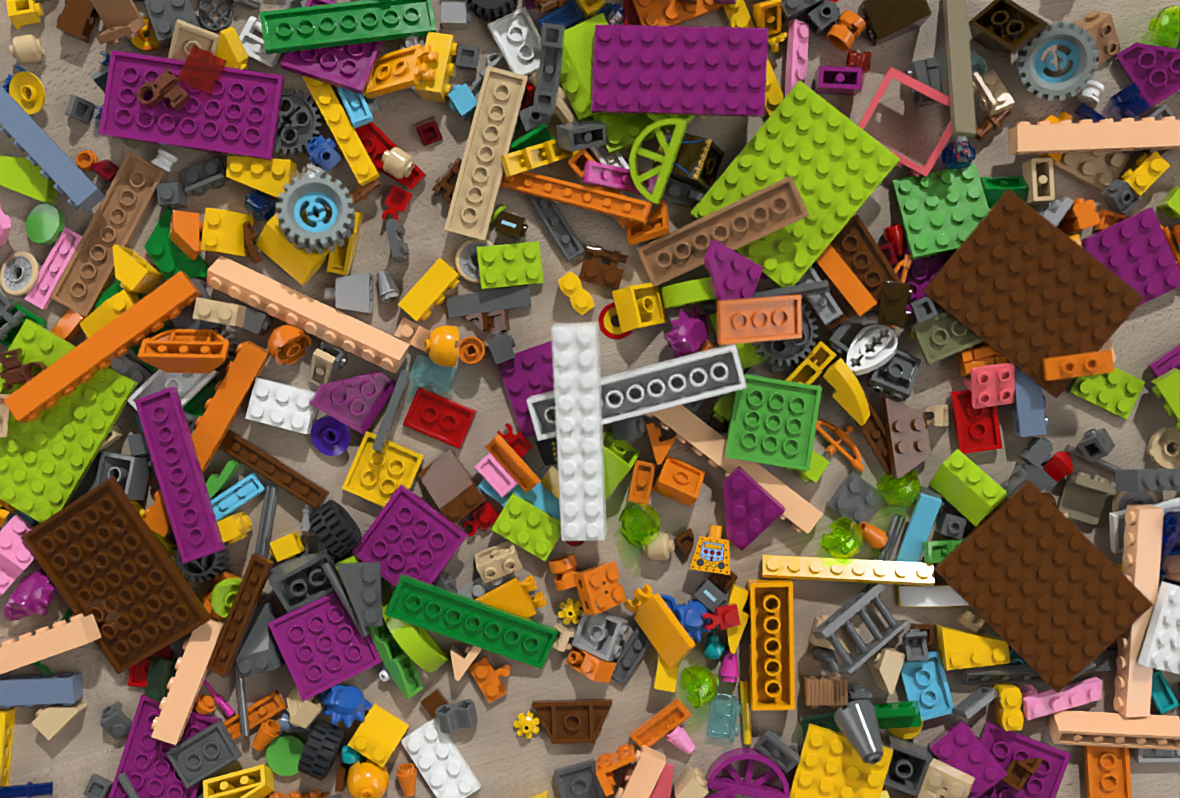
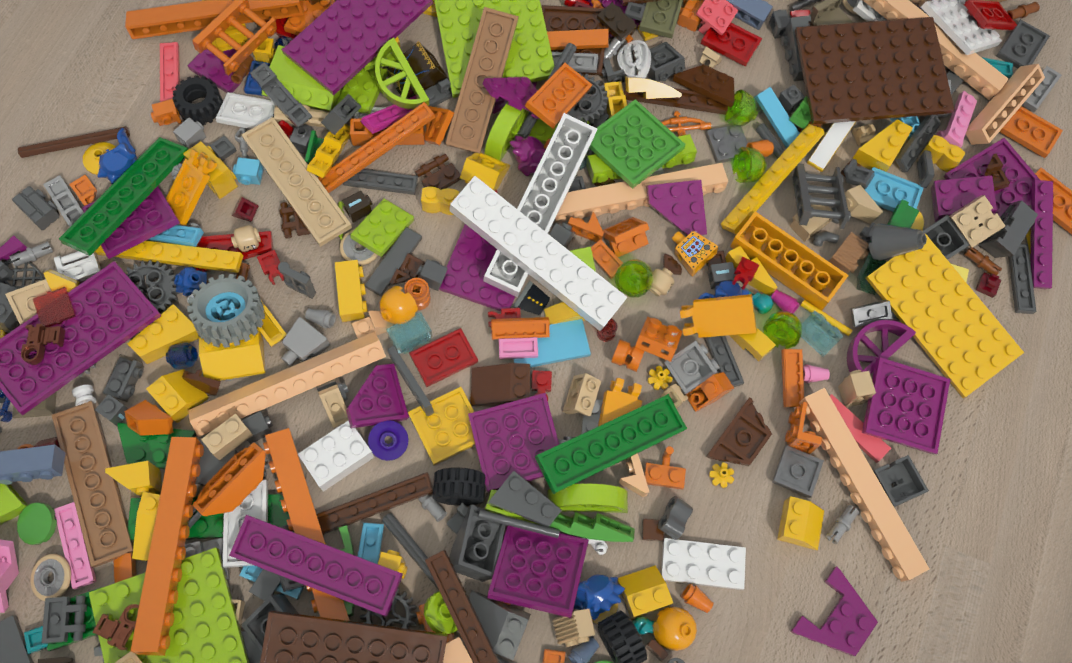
camera: 50 degrees left, 20 degrees down
(287, 344) = (295, 414): orange cylinder -> none
(287, 547) = (440, 540): yellow brick -> none
(528, 527) = (574, 355): lime plate -> none
(968, 488) = (773, 68): lime slope -> none

